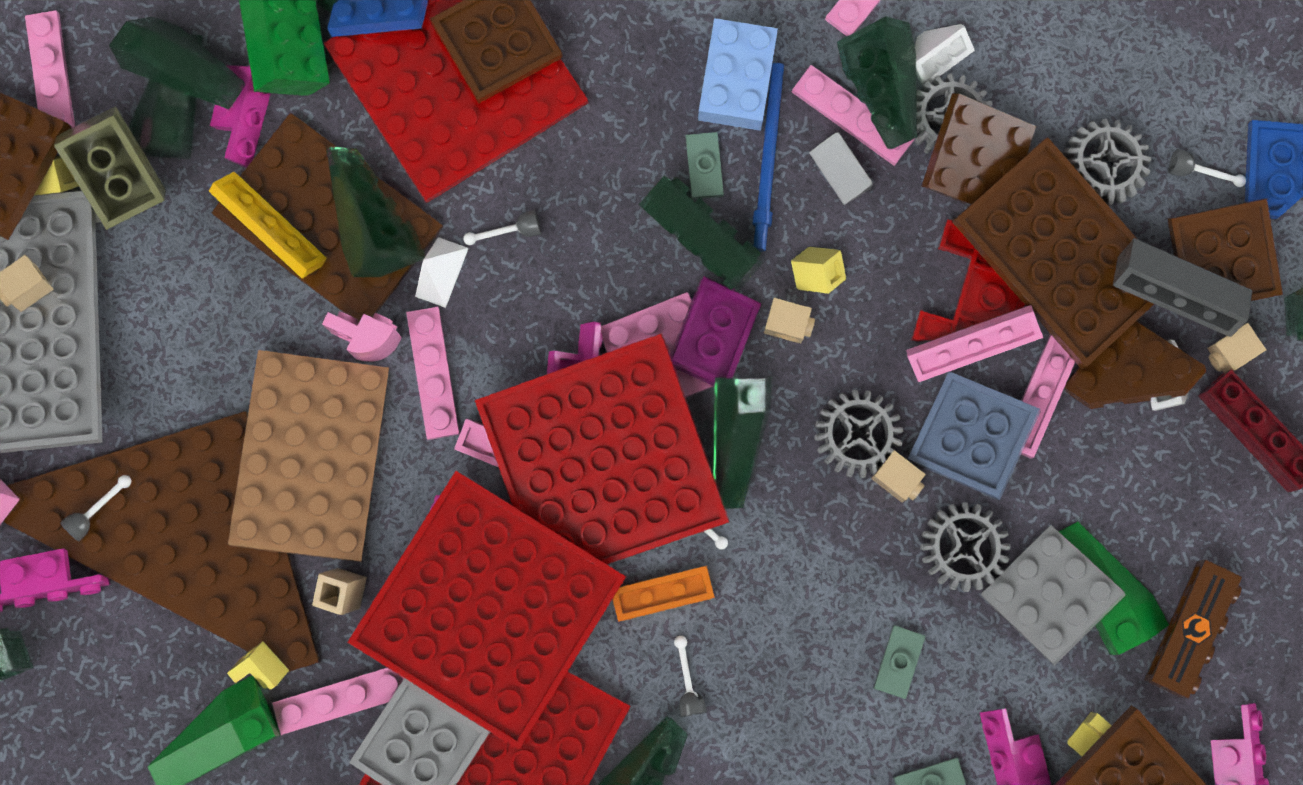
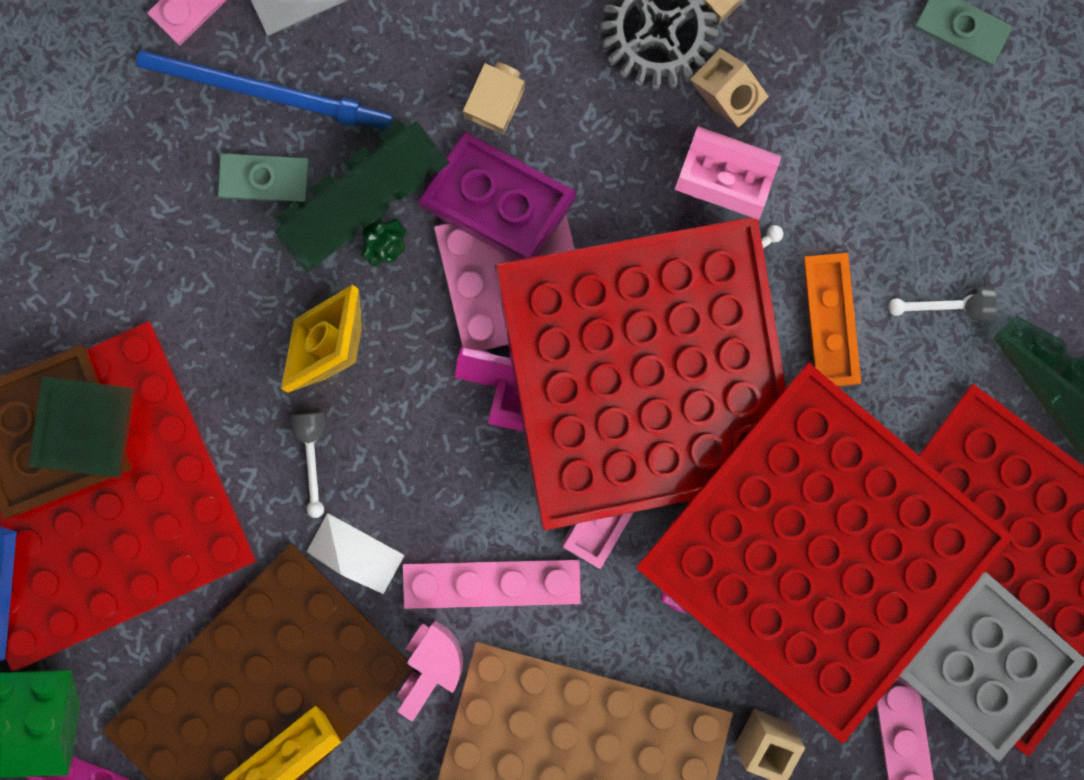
camera: 80 degrees left, 5 degrees up
(369, 227) = (285, 640): clear green wedge -> none
(501, 61) = (81, 427): none -> clear green plate
(591, 225) = (324, 340): none -> yellow slope
(670, 257) = (383, 242): none -> dark green plant
(737, 74) = (145, 112): light blue brick -> none
(739, 427) = (626, 185): clear green wedge -> none
(758, 497) = (728, 172): none -> bright pink brick
(818, 269) = (431, 47): light yellow panel -> none
(823, 490) = (729, 87): none -> tan brick

